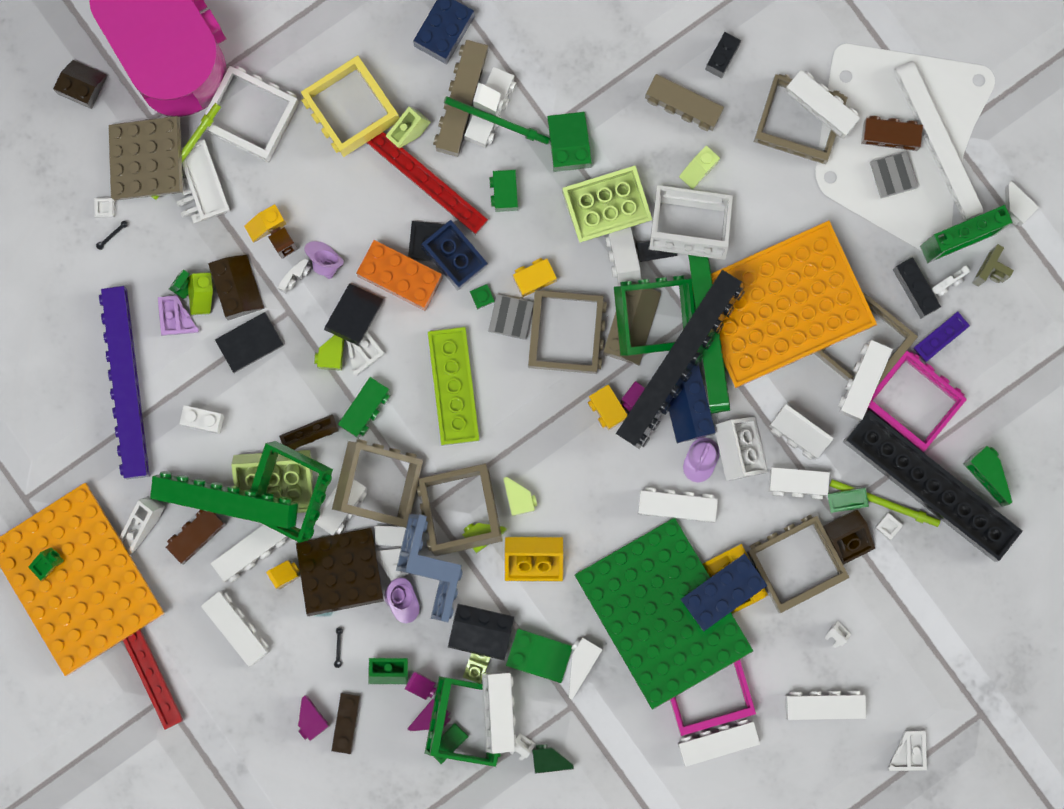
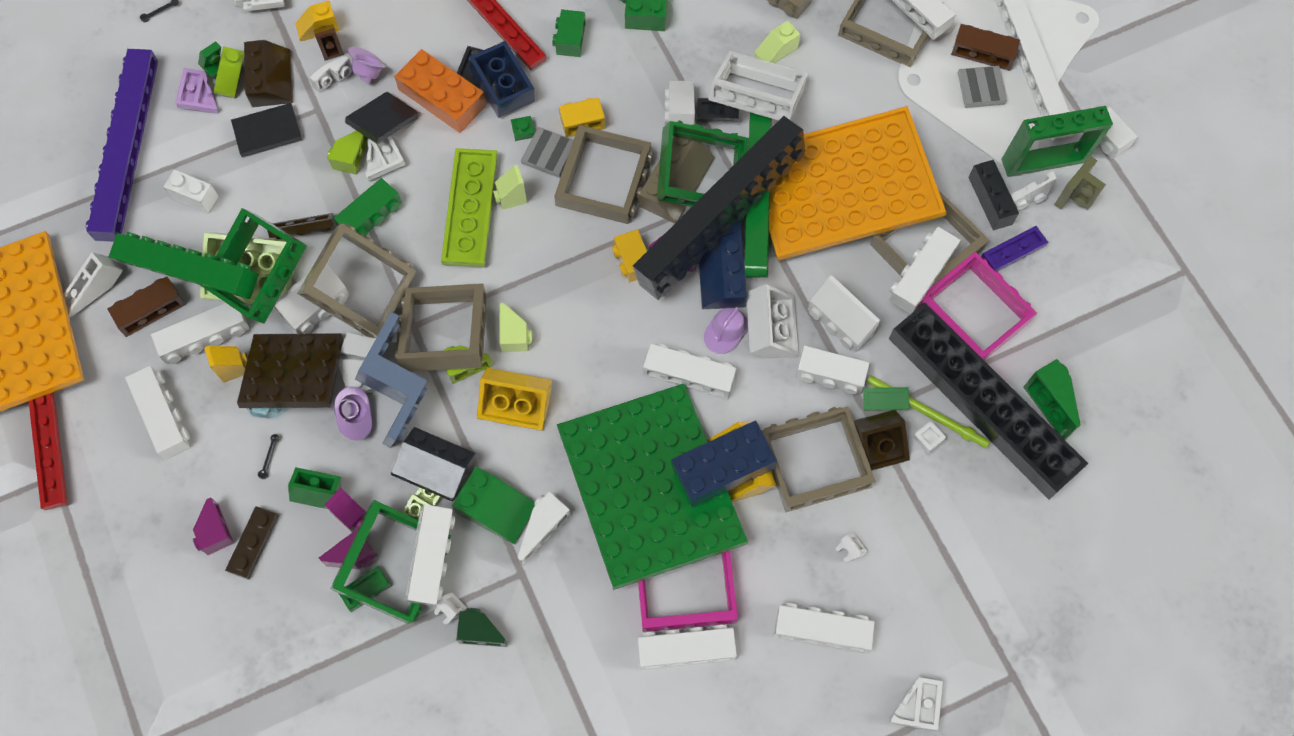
camera: 10 degrees right, 15 degrees down
(486, 365) = (510, 189): none -> yellowish green slope
(606, 204) = (672, 56): yellowish green slope -> none

